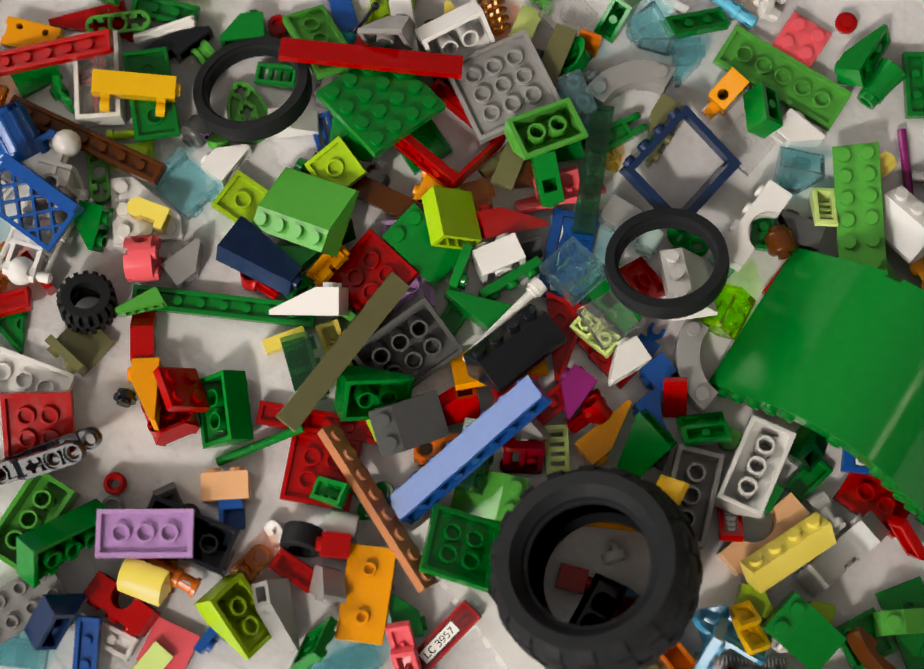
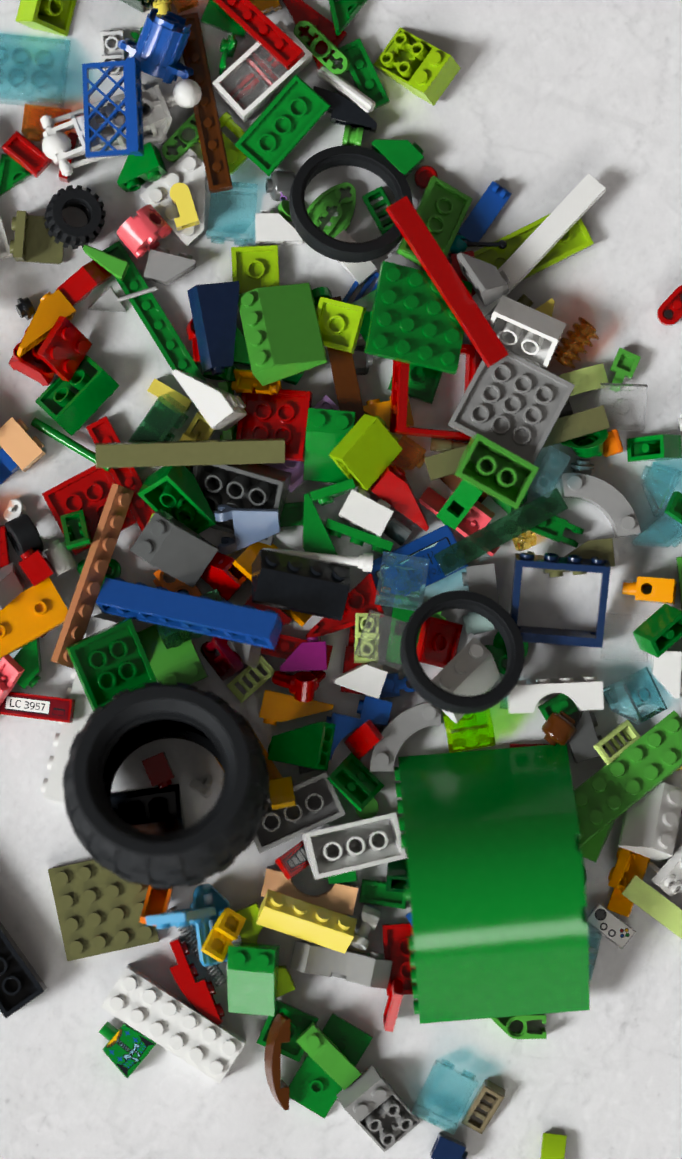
camera: 55 degrees right, 10 degrees up
(134, 86) = (274, 109): yellow brick -> none
(176, 327) = (111, 302): none -> light grey piece
(437, 354) = (249, 526): none -> sand blue flag

